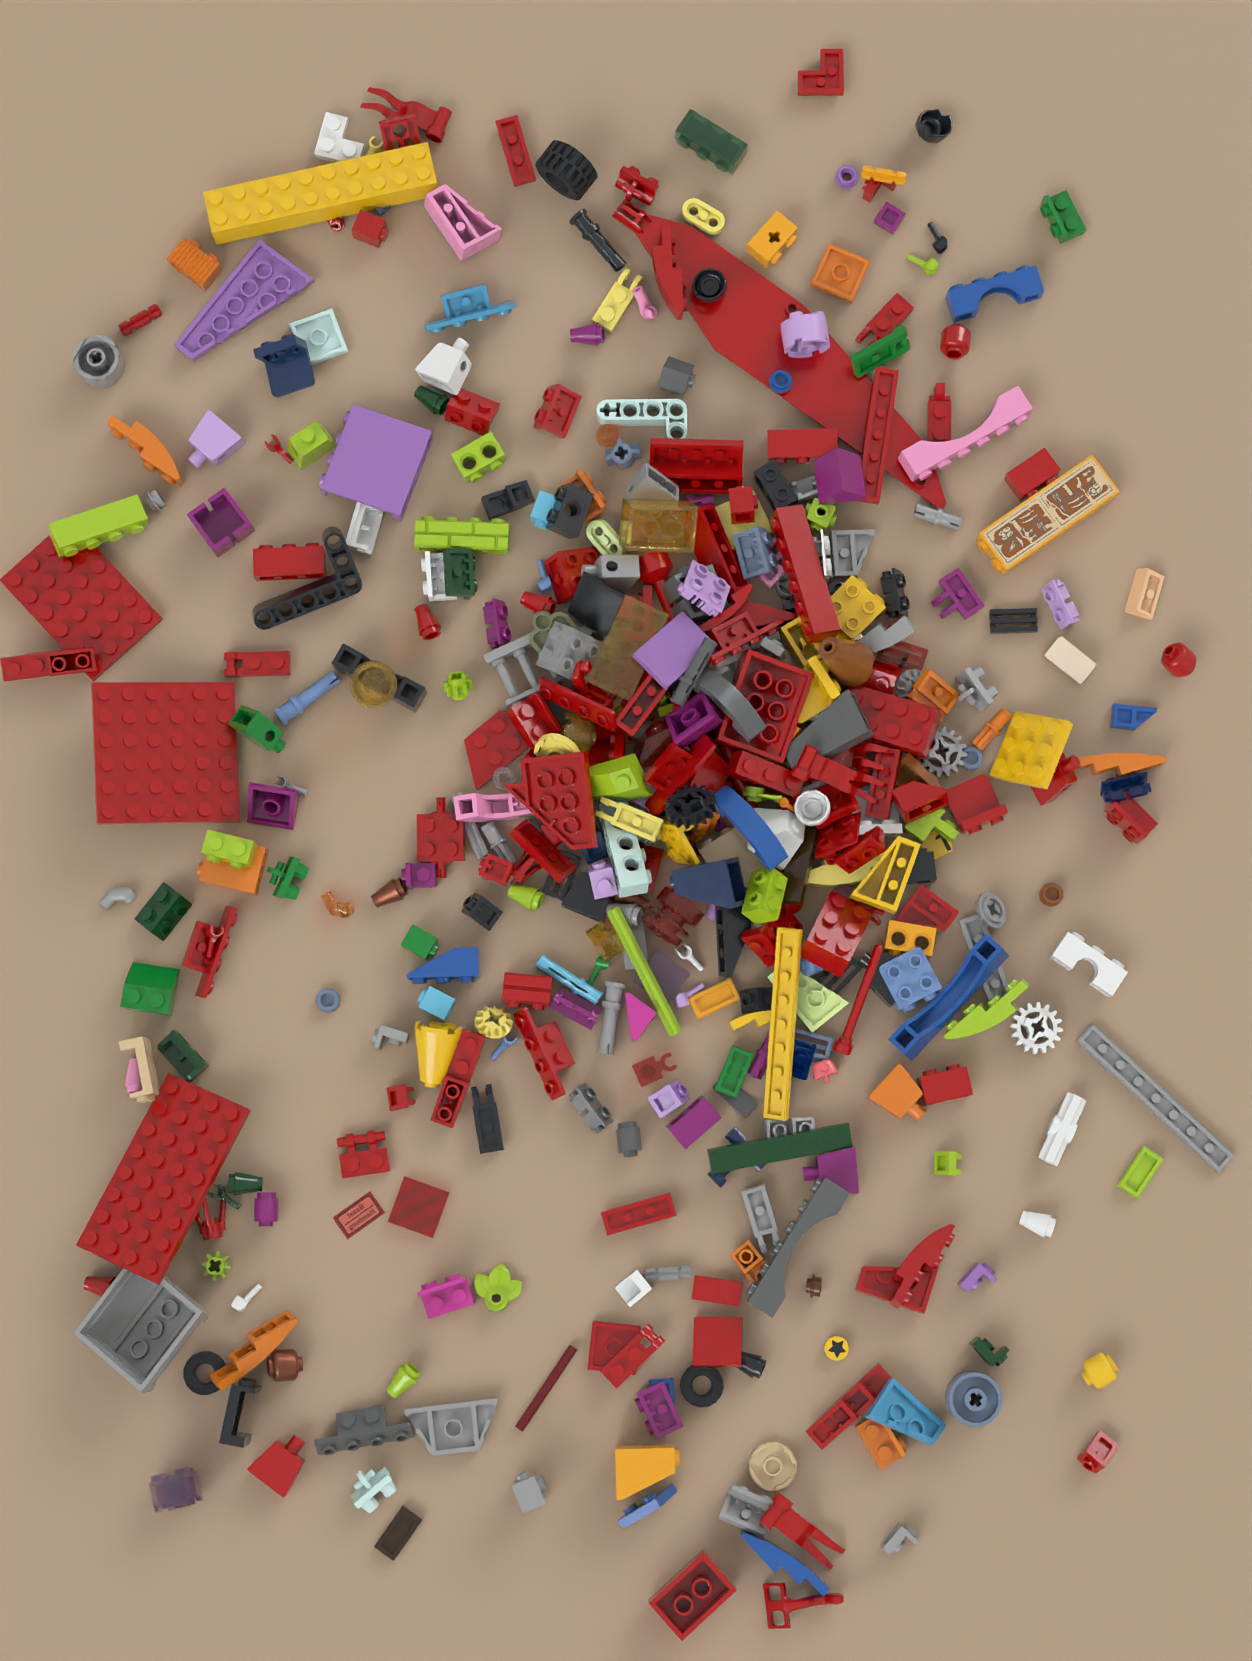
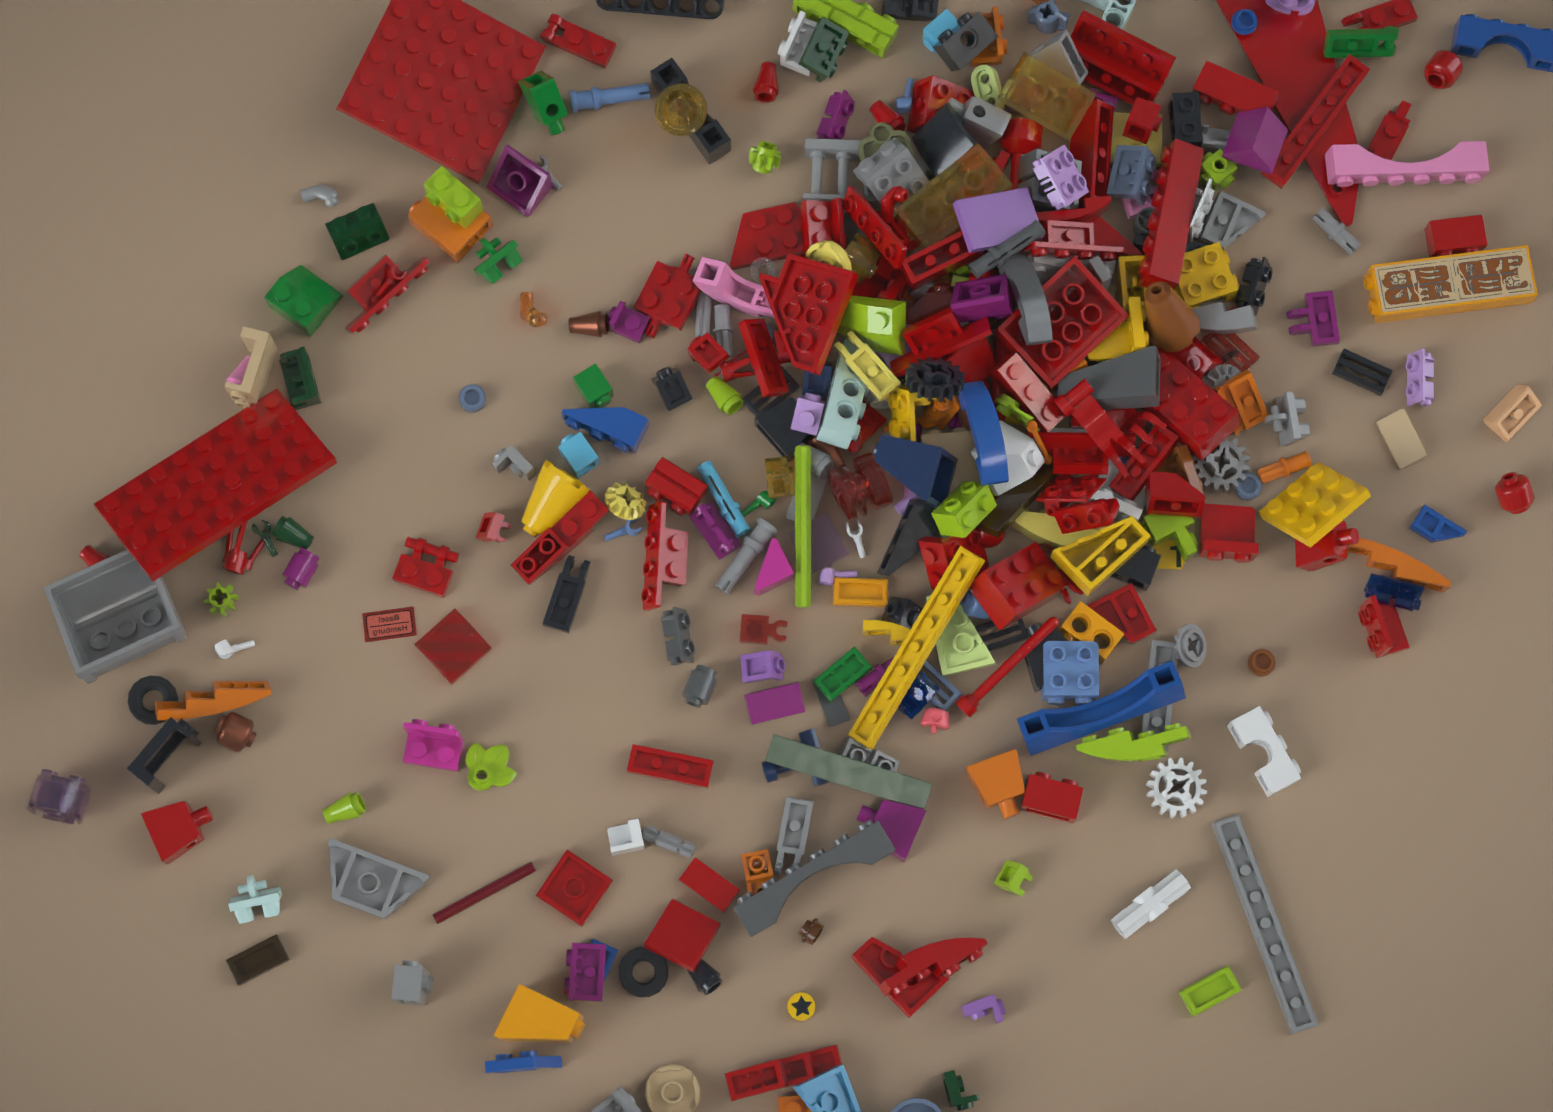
camera: 25 degrees right, 5 degrees down
(362, 1429) = (277, 837): dark grey bracket -> none
(631, 1356) = (587, 904): red plate -> none
(812, 808) = (1058, 447): white hair -> none
(1038, 1223) = (1076, 987): white cone -> none

